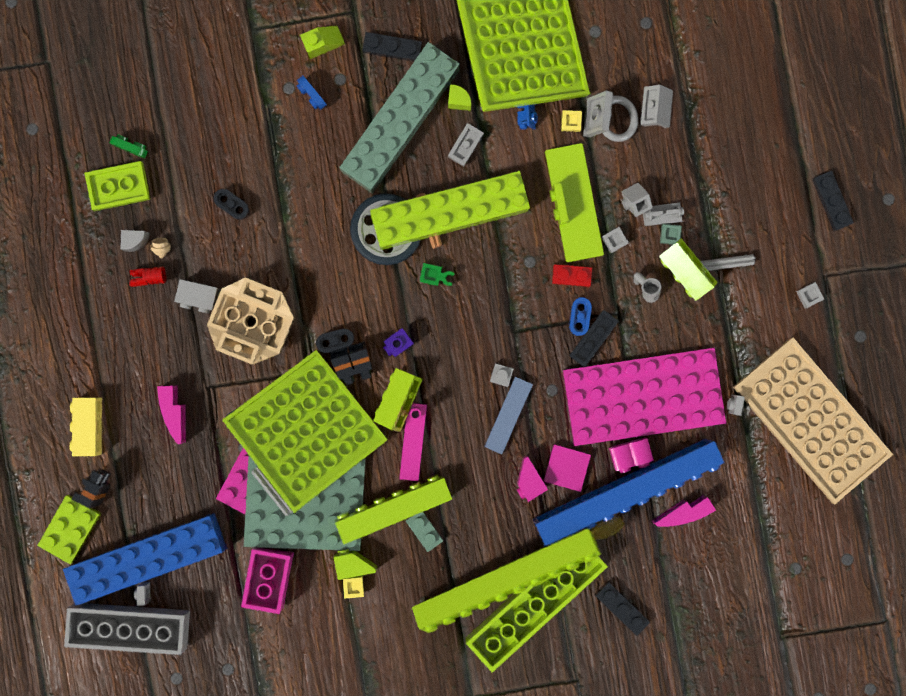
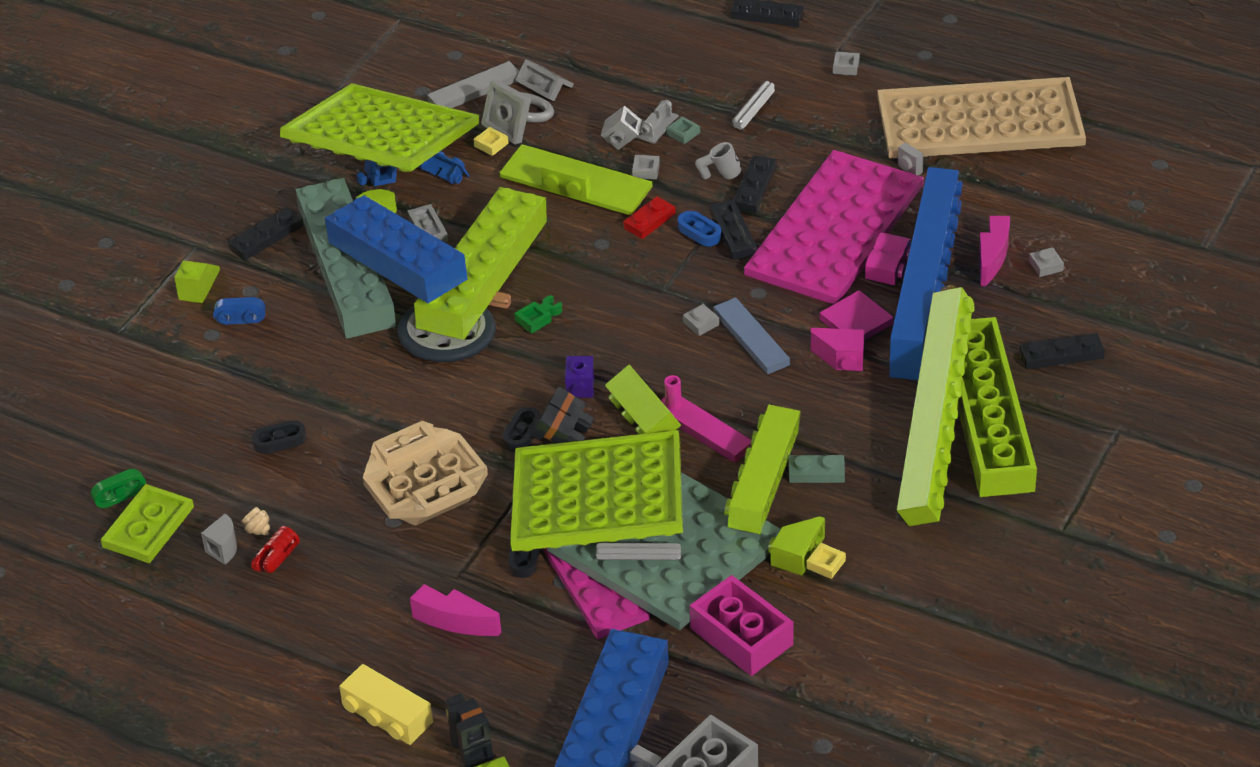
camera: 50 degrees left, 45 degrees down
(196, 295) = (345, 517): light grey brick -> none
(400, 164) = (396, 248): none -> blue brick
(619, 64) = (473, 86): none -> light grey tile
(649, 318) = (755, 183): none -> black plate
(688, 269) = (731, 126): brick -> none
(698, 549) = (1046, 262): none -> light grey plate

